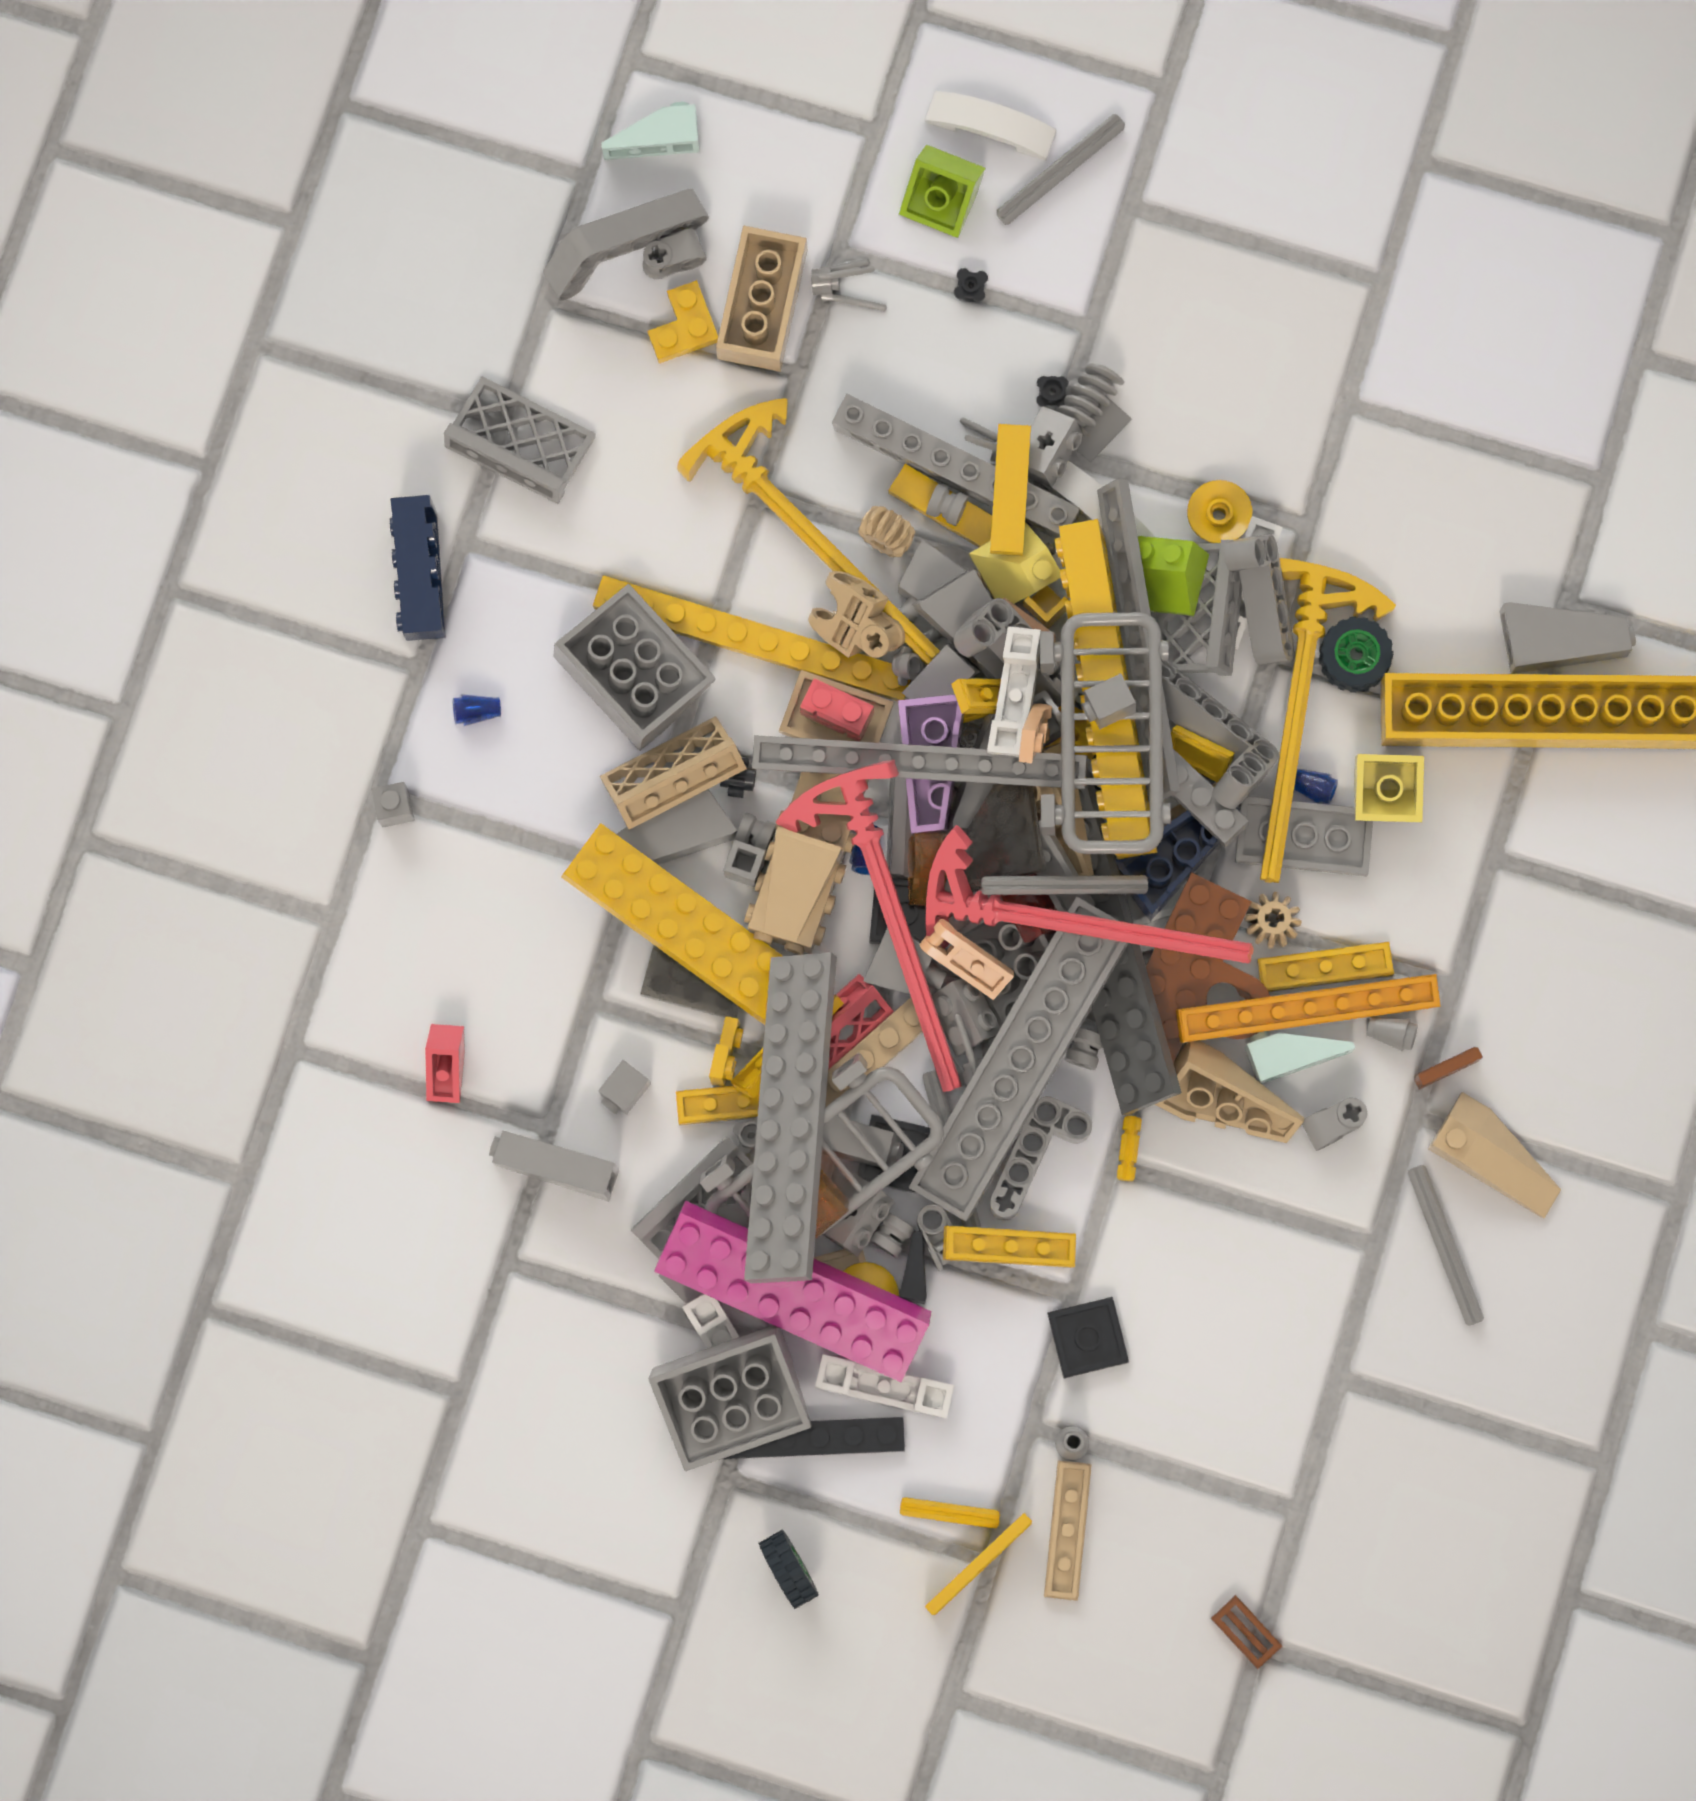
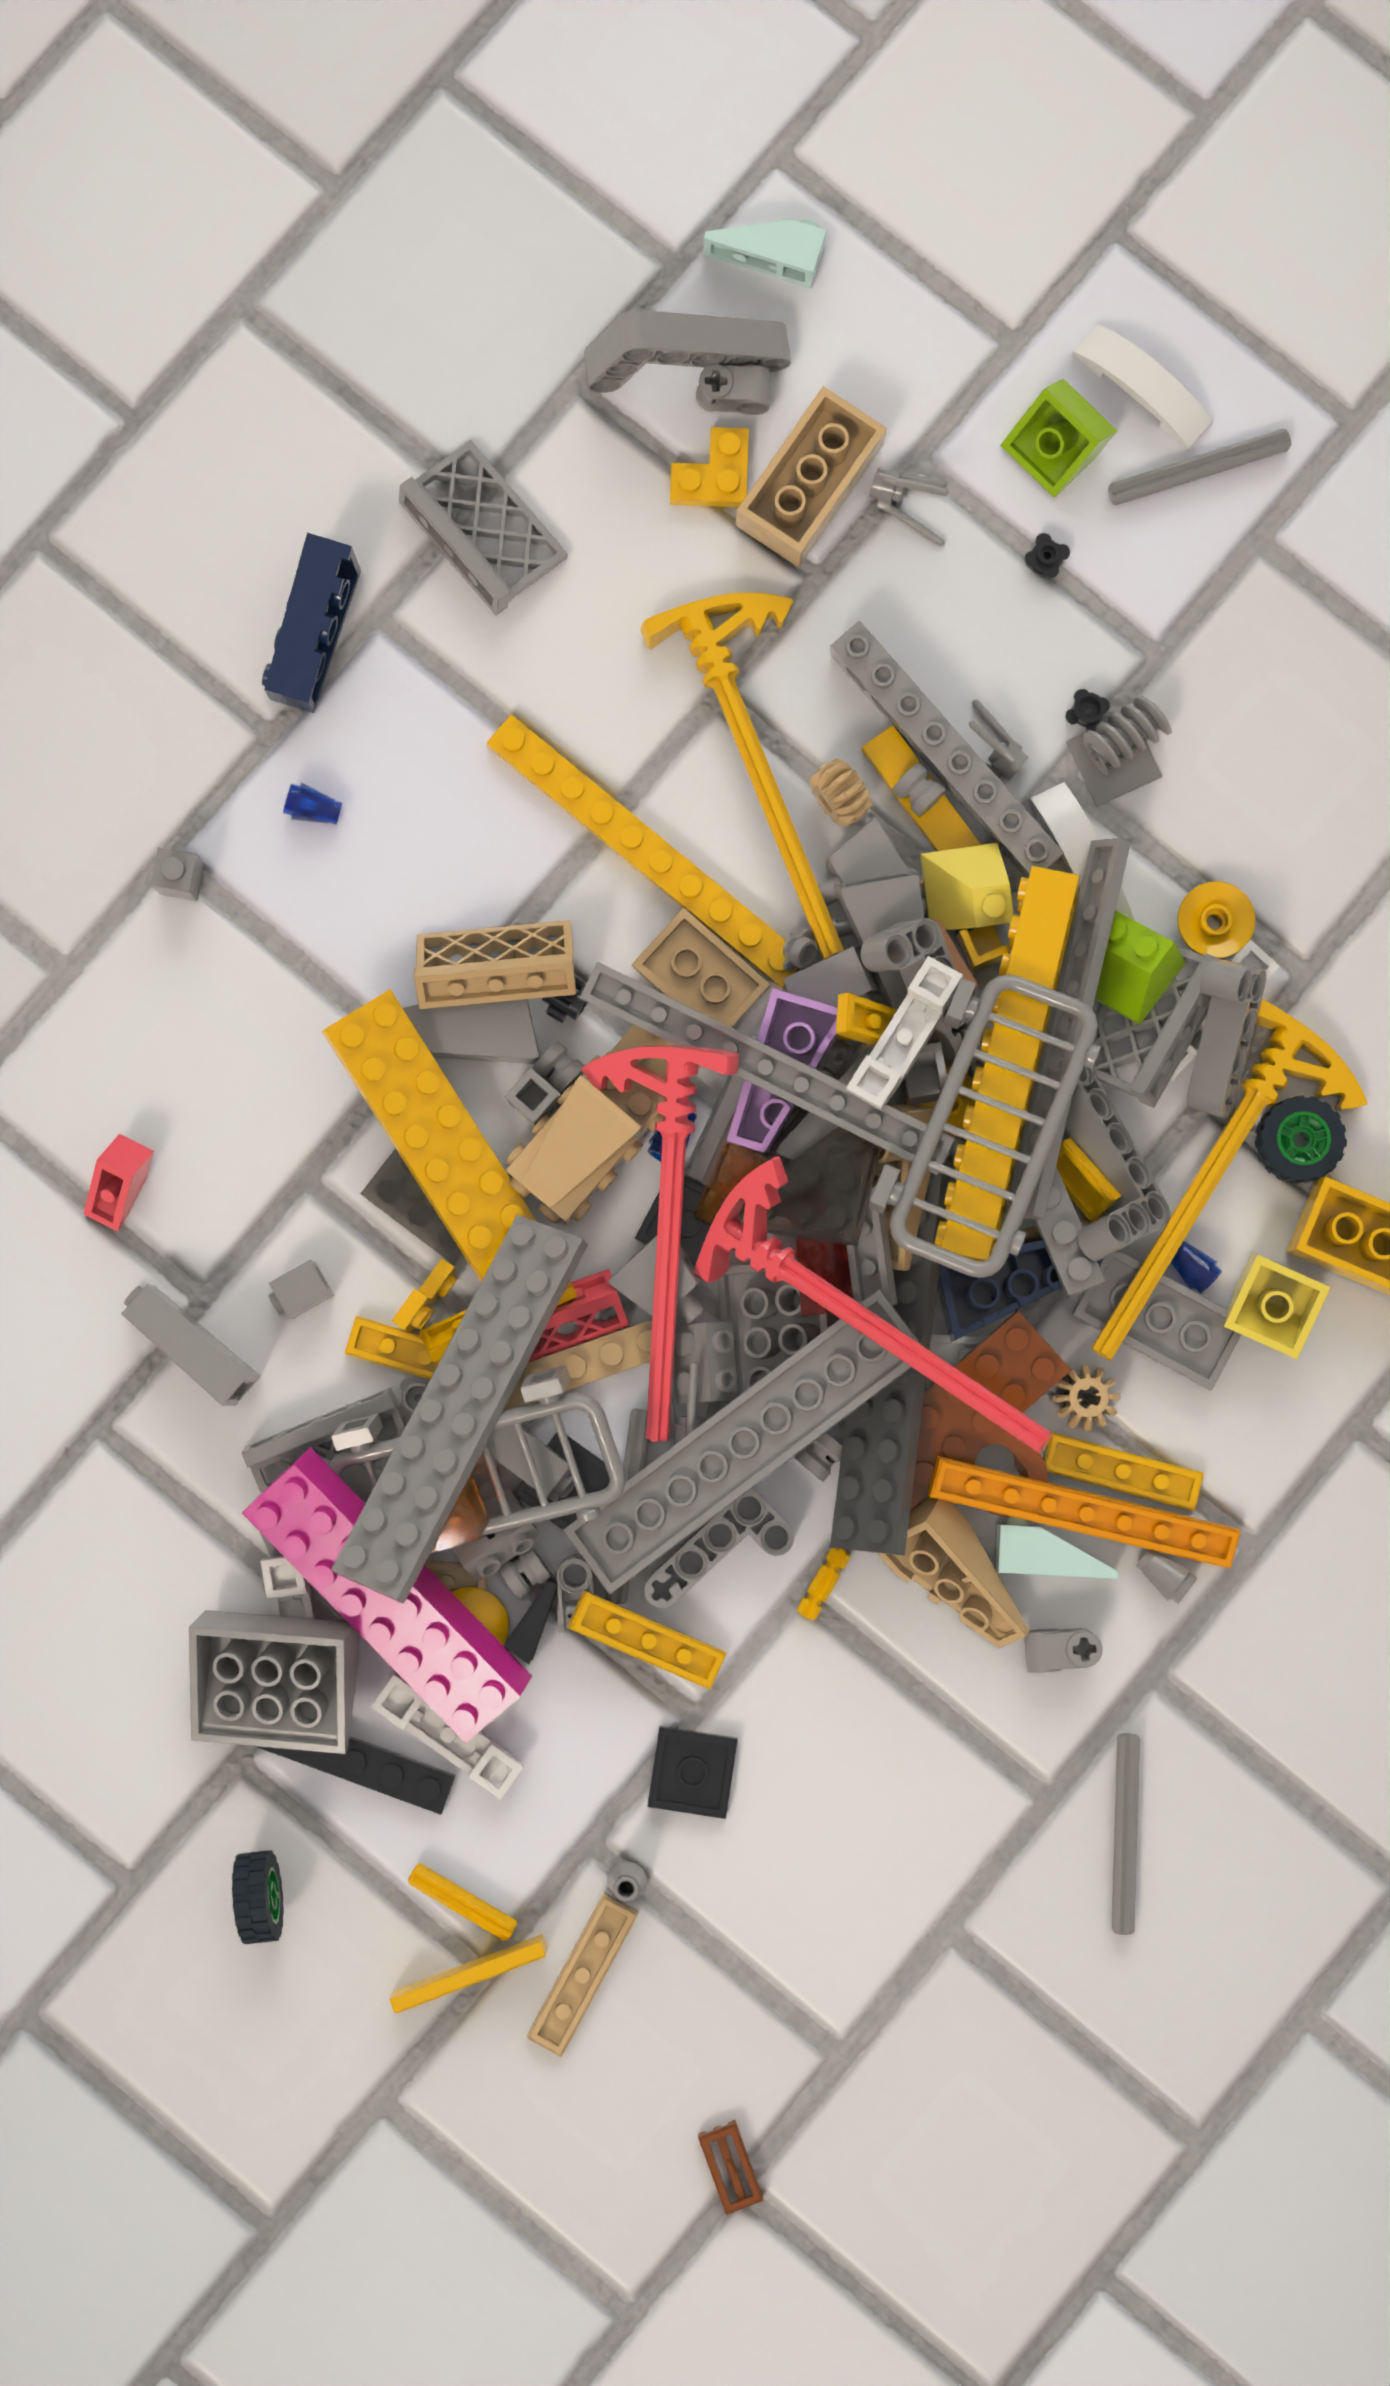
camera: 15 degrees right, 5 degrees up
(633, 666) = (501, 828): light grey slope -> none
(837, 710) = (703, 969): coral brick -> none
(858, 618) = (768, 876): tan piece -> none
(967, 960) = (730, 1306): light nougat plate -> none
(1010, 489) = (995, 801): yellow tile -> none
(1035, 732) = (908, 1088): light nougat plate -> none
(1051, 445) = (1056, 770): light grey brick -> none
(1063, 885) = (871, 1271): light grey axle -> none
(1108, 702) = (1005, 1090): light grey brick -> none
(1448, 1067) = (1210, 1640): dark orange tile -> none
(1487, 1150) = (1215, 1747): tan wedge -> none

